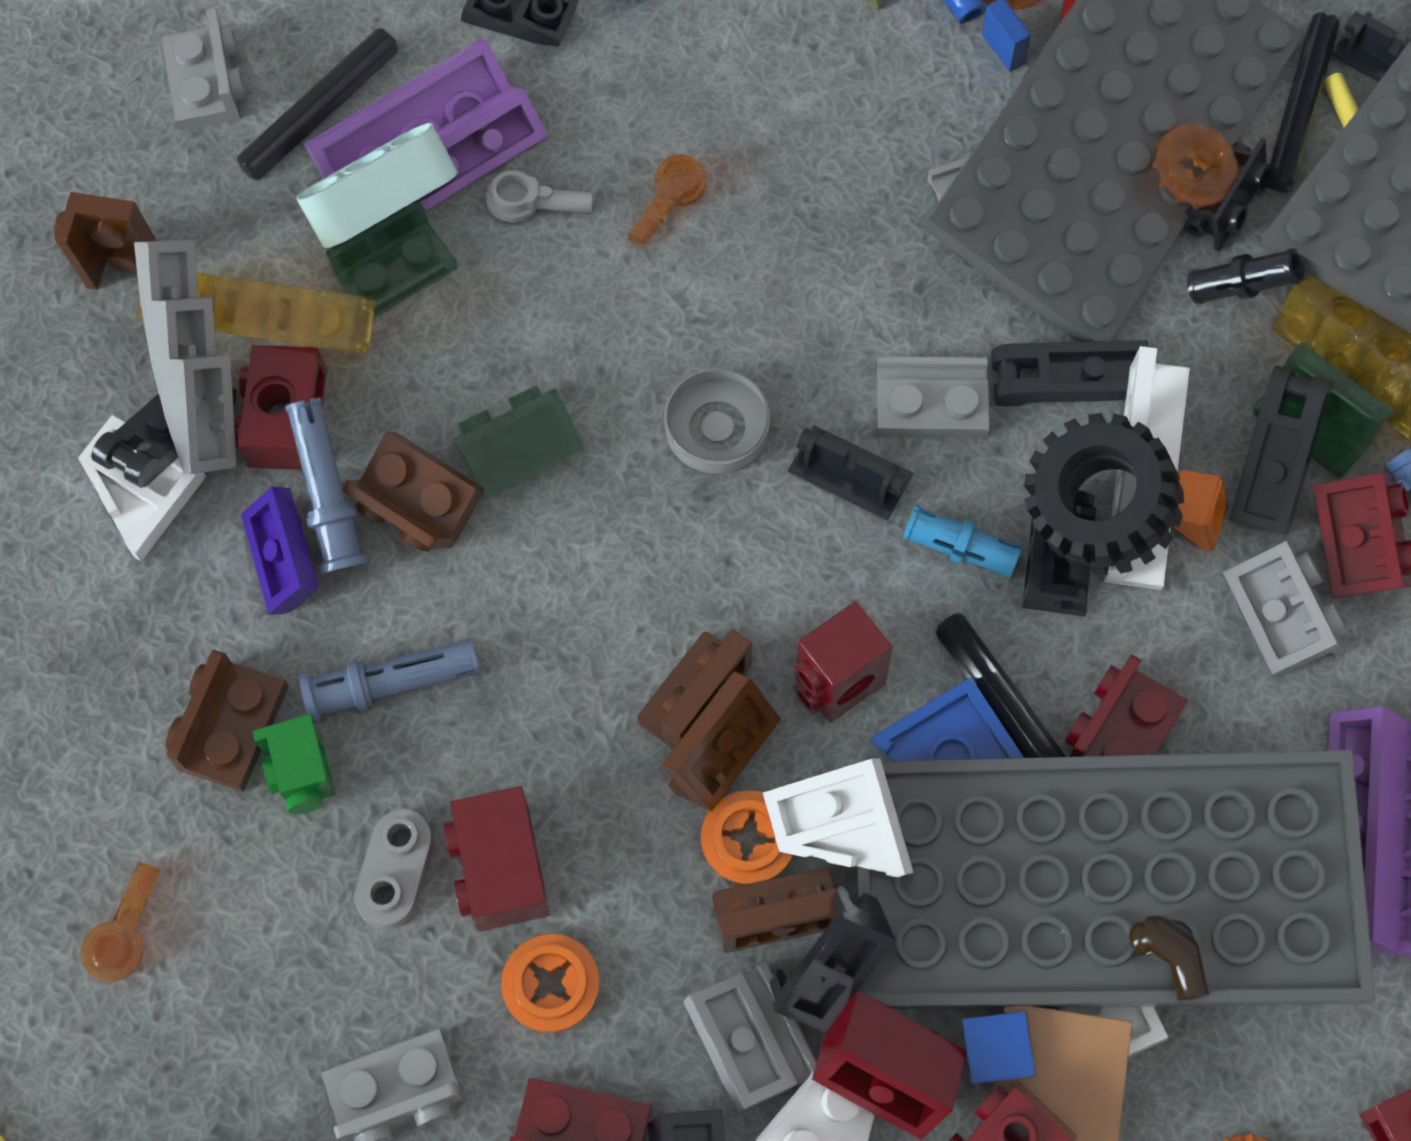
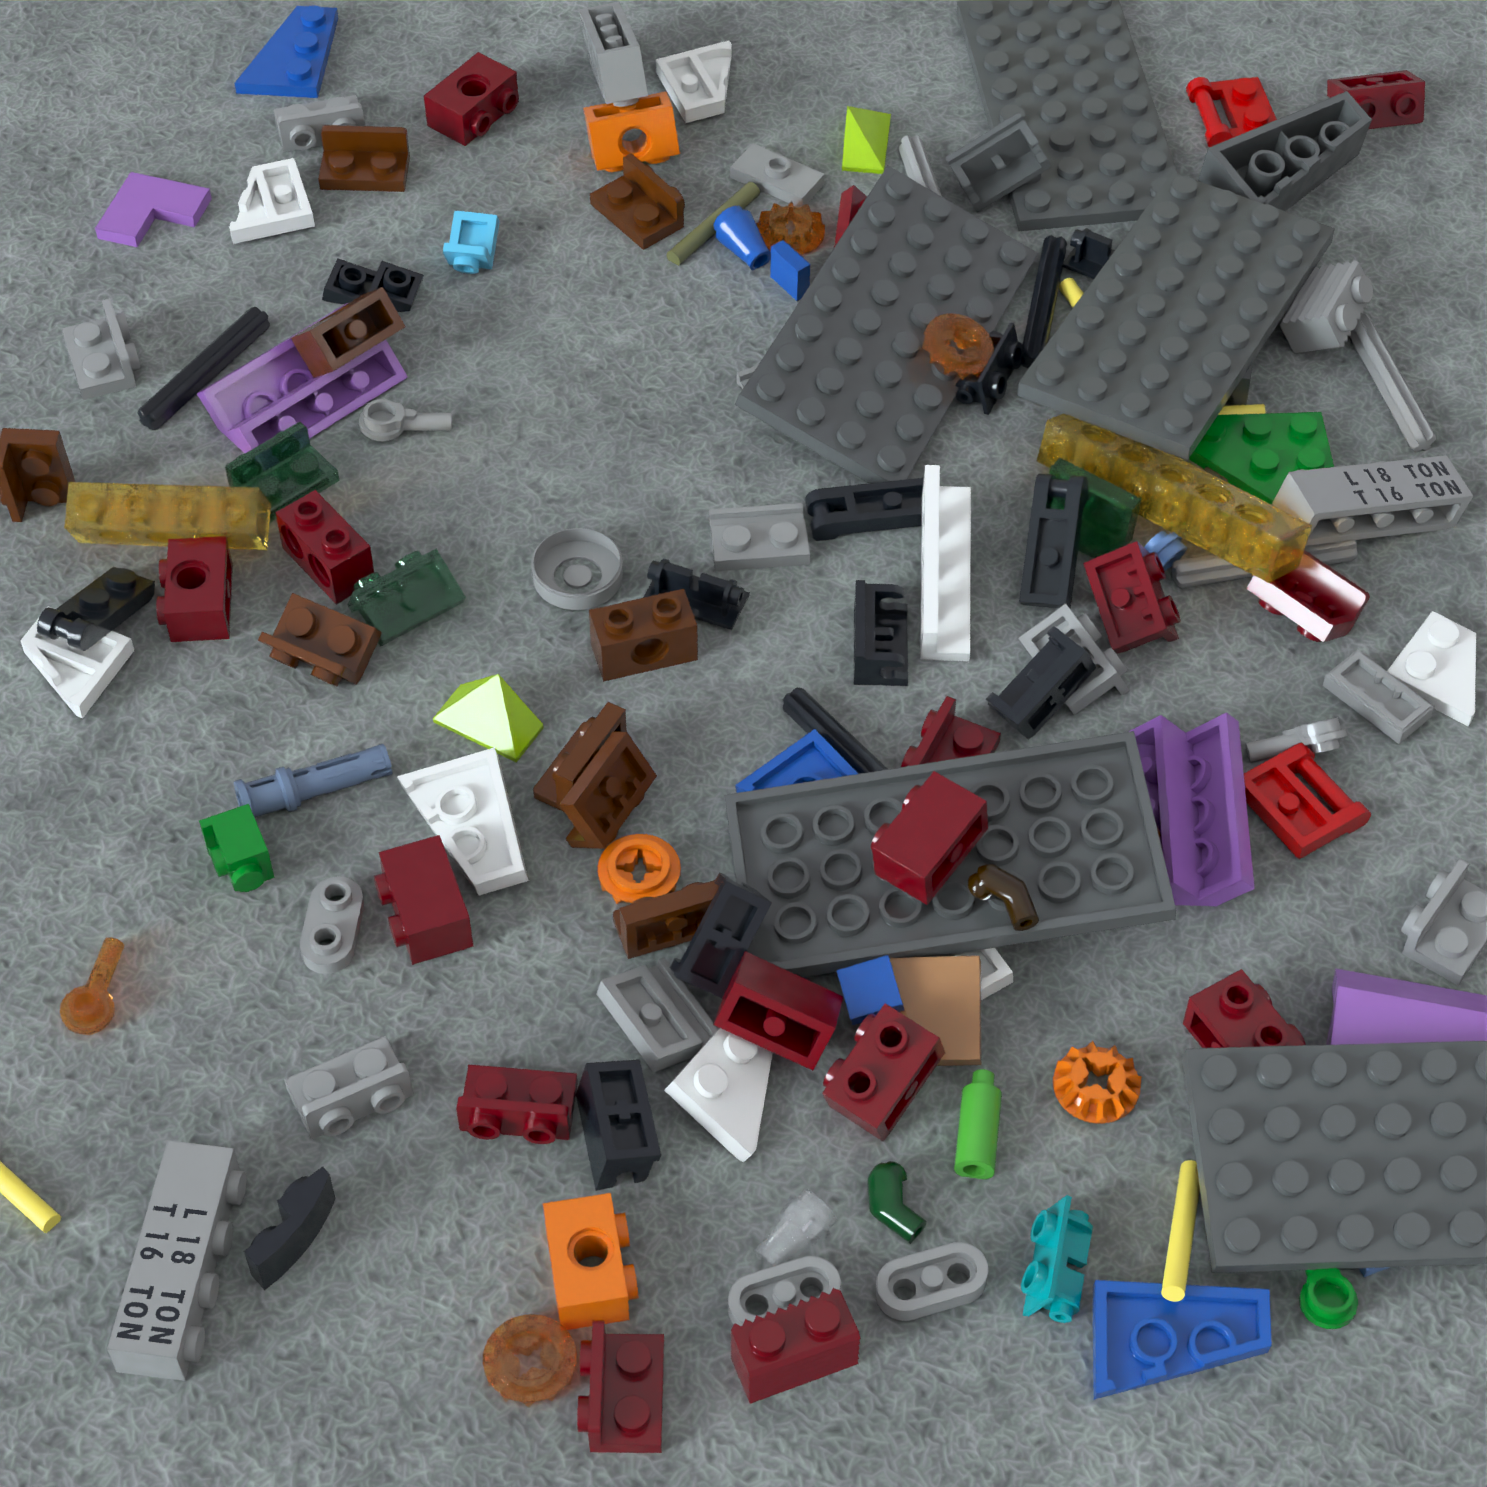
camera: 10 degrees left, 15 degrees down
(183, 356) = (109, 531): light grey slope -> none
(216, 729) = (167, 829): reddish brown bracket -> none
(279, 550) = (206, 694): dark purple plate -> none
(331, 514) = (249, 659): sand blue pin -> none
(377, 185) = (265, 412): light aqua beam -> none
(431, 366) = (324, 545): none -> dark red brick
(481, 84) = (348, 332): none -> reddish brown brick
(550, 954) = (477, 974): orange gear -> none
(565, 746) = (473, 816): none -> white wing
(597, 613) = (491, 716): none -> slope
(679, 182) = (522, 399): clear orange plate -> none
(784, 525) = (643, 635): none -> reddish brown brick
(841, 663) = (704, 723): dark red brick -> none
(841, 819) = (715, 832): white wing -> none
(962, 541) = (796, 636): dark azure pin -> none
(1079, 456) = (892, 540): black tyre -> none
(1090, 872) = (929, 837): none -> dark red brick
(1202, 508) = (992, 592): orange slope -> none
(1243, 644) = (1043, 684): none -> black hinge
(1245, 276) = (985, 432): black pin -> none

